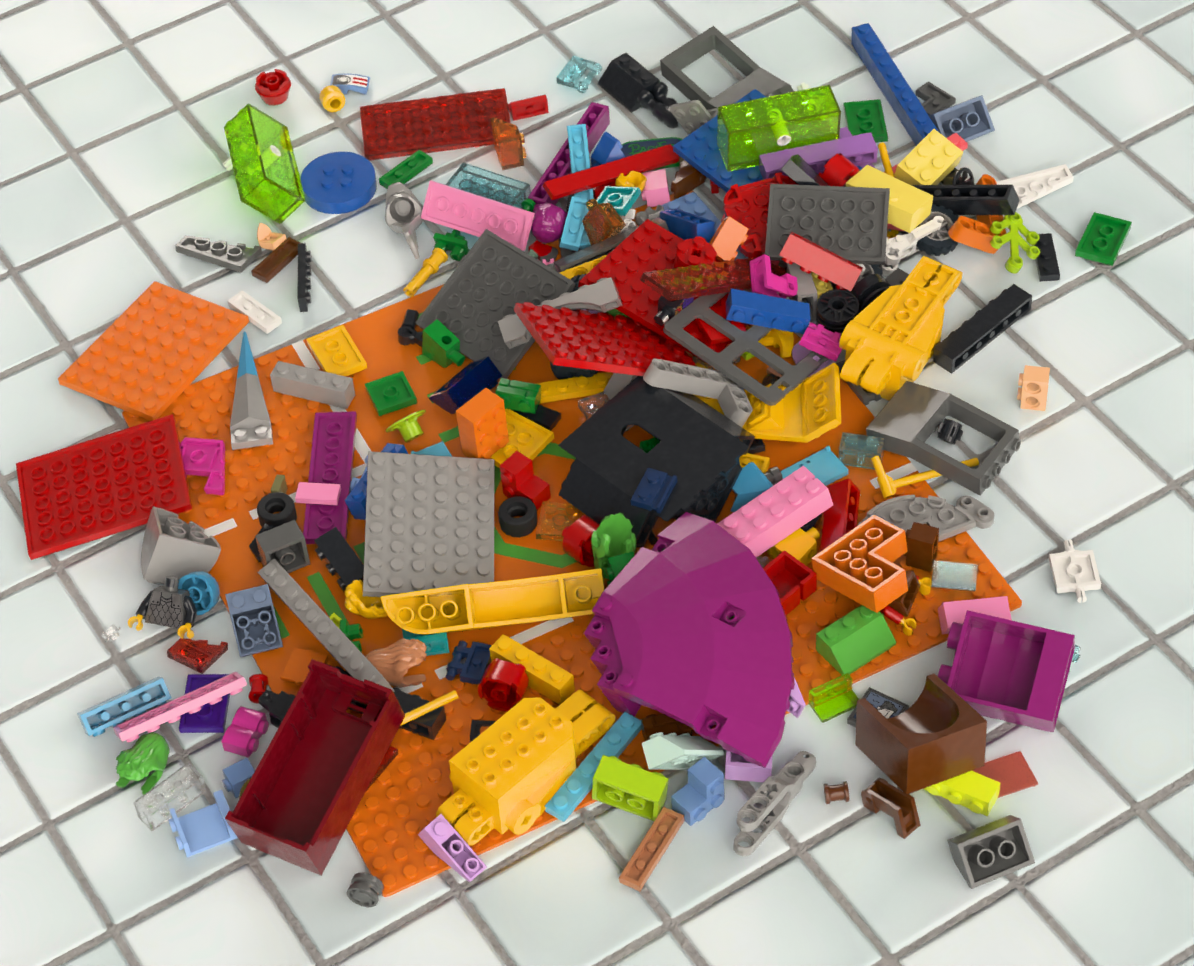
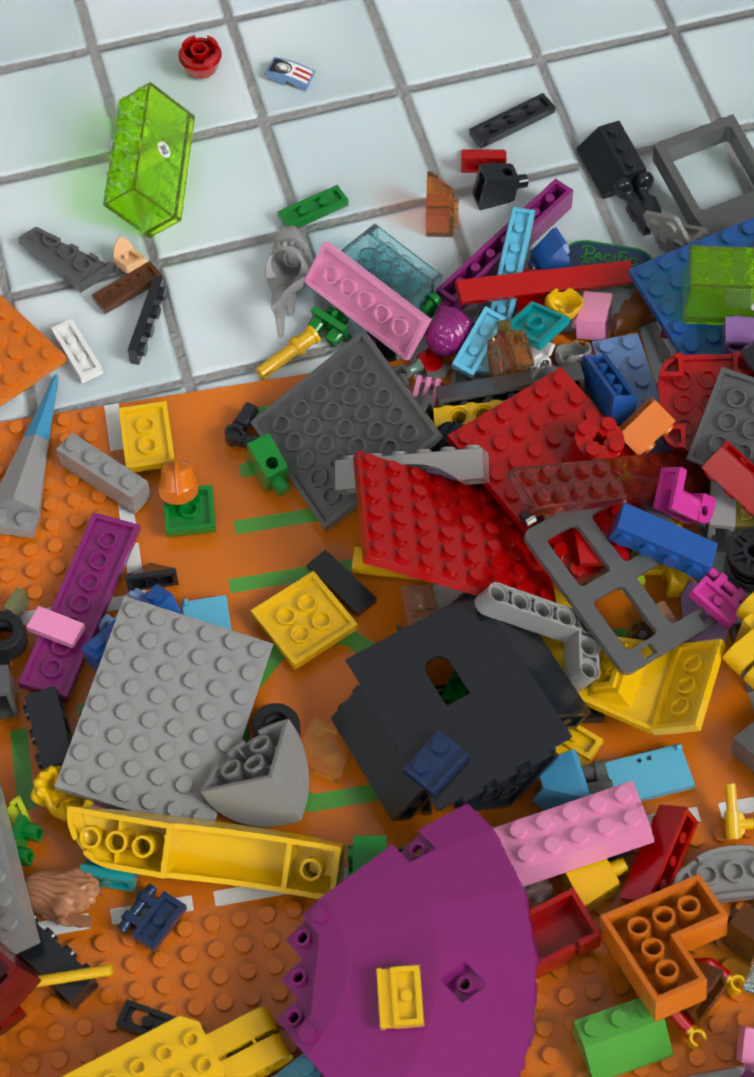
camera: 15 degrees right, 10 degrees up
(332, 98) = (262, 88): yellow head -> none
(338, 182) = (231, 203): blue brick -> none
(374, 374) = (178, 482): none -> orange piece
(378, 443) = (150, 575): none -> black slope
(408, 428) = (191, 565): lime wheel -> none
(432, 123) = (367, 152): clear red plate -> none
(466, 384) = (279, 527): clear blue slope -> none
(482, 425) = (269, 600): orange brick -> none
(503, 684) = (175, 968): red brick -> none
(519, 395) = (331, 562): green brick -> none
(519, 480) = (295, 685): red brick -> none
(521, 547) = (262, 779): none -> light grey brick
(539, 75) = (512, 120): none -> black plate
(542, 674) = (218, 954): yellow brick -> none
(546, 119) = (497, 185): none -> black torso
(574, 70) = (552, 126): clear light blue plate -> none
(578, 540) = (342, 793): red brick -> none
(612, 539) = (369, 811): bright green hair -> none
(687, 632) = (400, 997): none -> yellow plate
(859, 449) = (718, 763): clear light blue brick -> none

